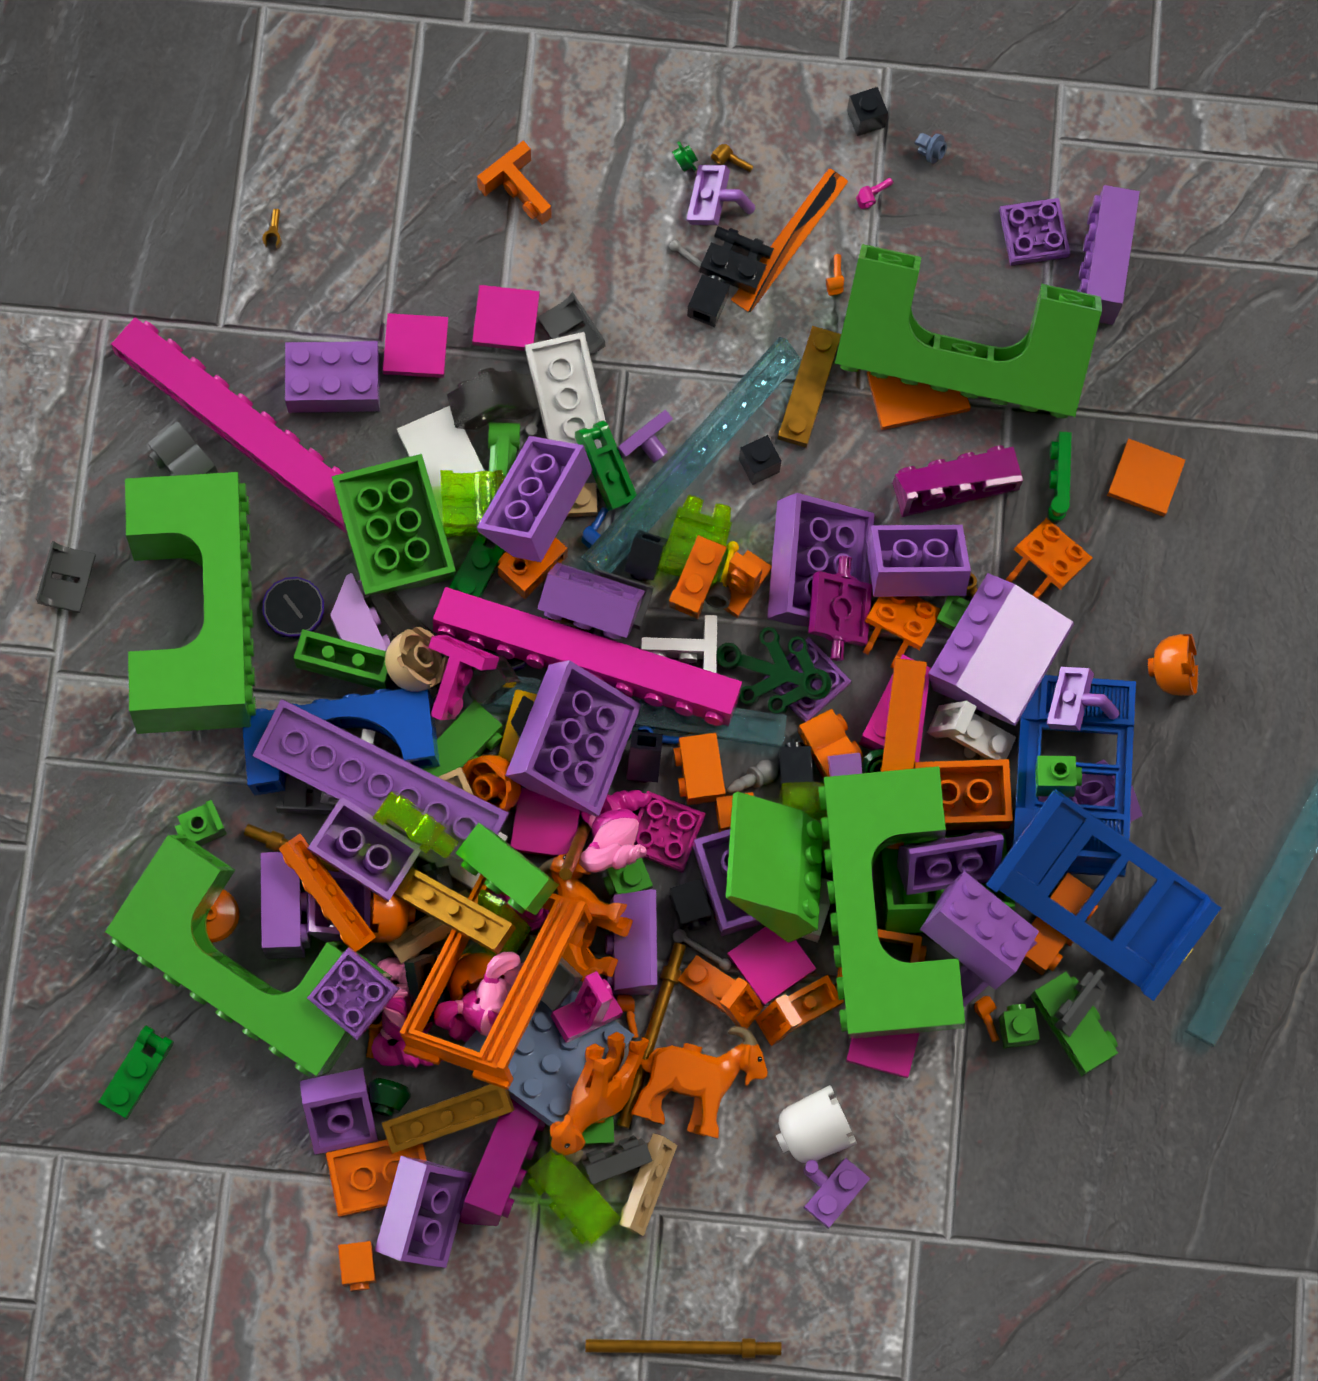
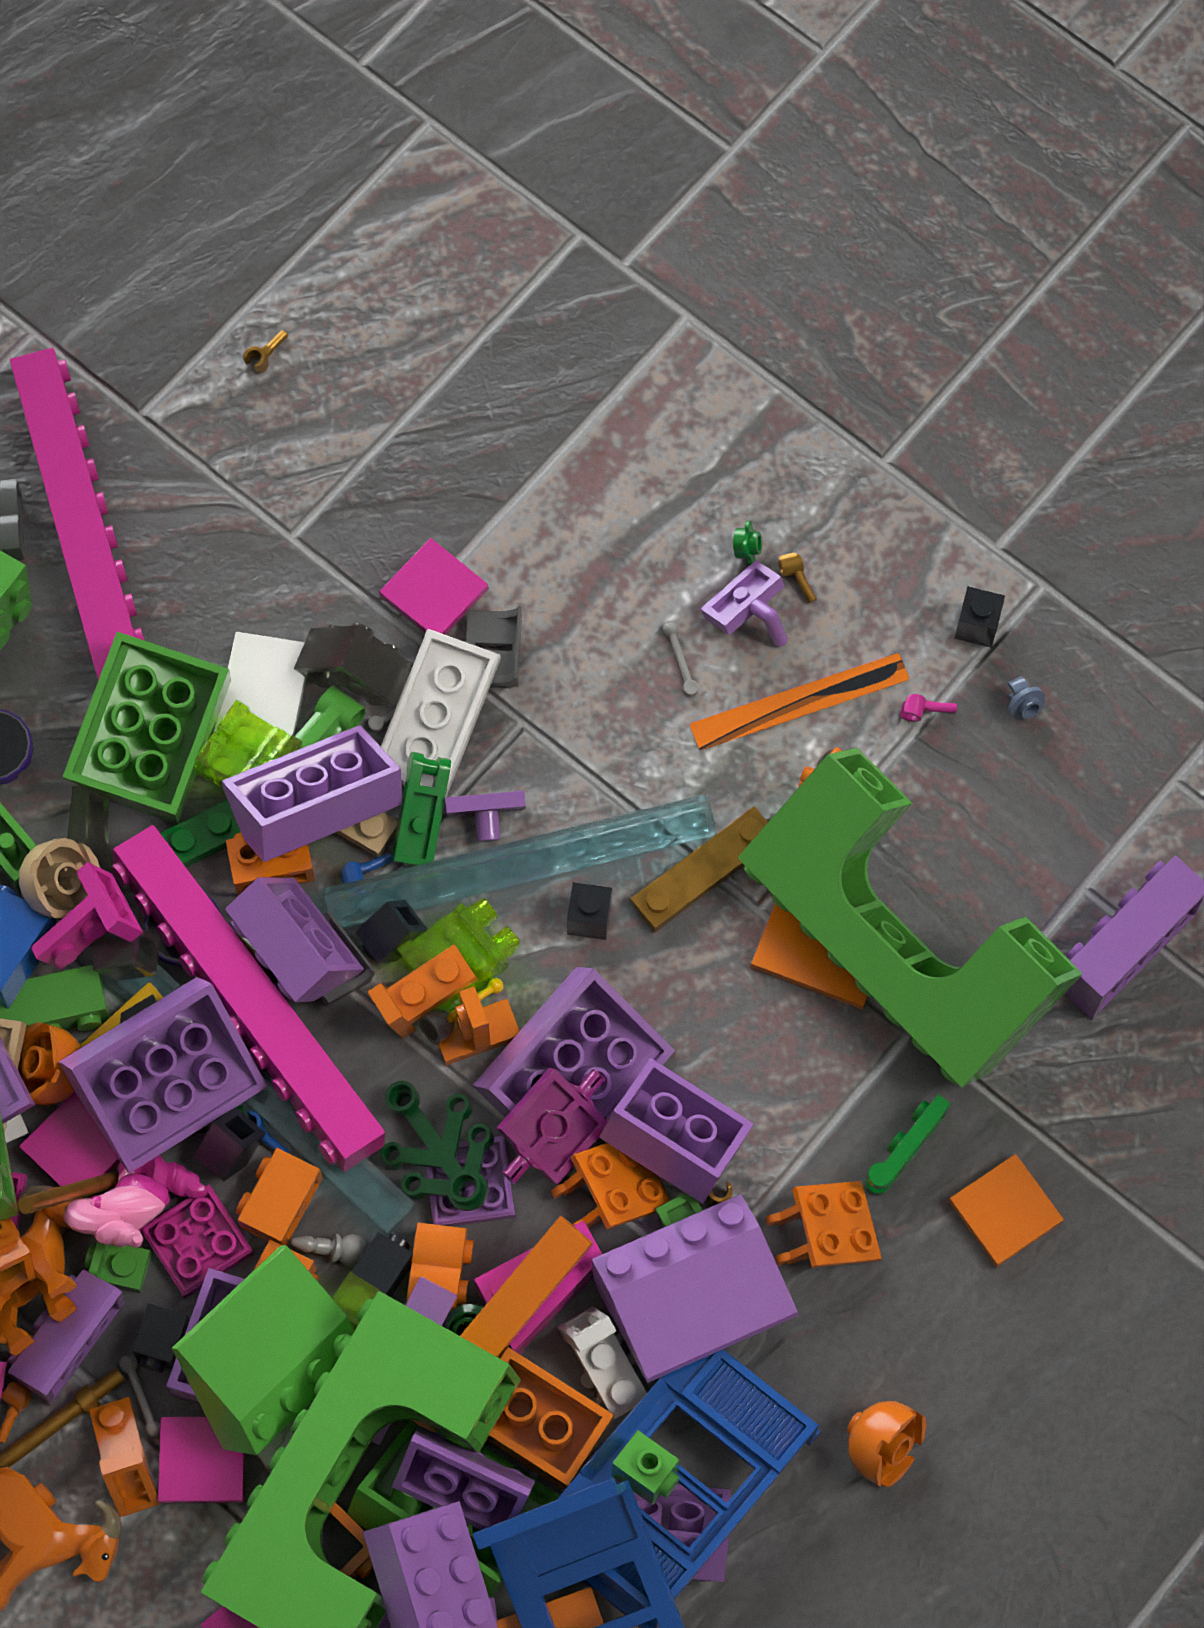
camera: 40 degrees right, 5 degrees down
(332, 376) = (208, 535): medium lavender brick -> none
(354, 619) = (42, 798): lavender slope -> none
(415, 345) = (319, 558): dark pink tile -> none
(507, 171) = (544, 440): orange bracket -> none
(688, 649) = (364, 1063): white bracket -> none
(708, 300) = (661, 707): black brick -> none
(733, 267) = (713, 689): black plate -> none
(798, 1009) = (183, 1530): orange bracket -> none
(957, 481) = (788, 1074): magenta wedge -> none
(1034, 231) = (1075, 862): medium lavender tile -> none
(1073, 696) = (731, 1393): medium lavender plate -> none

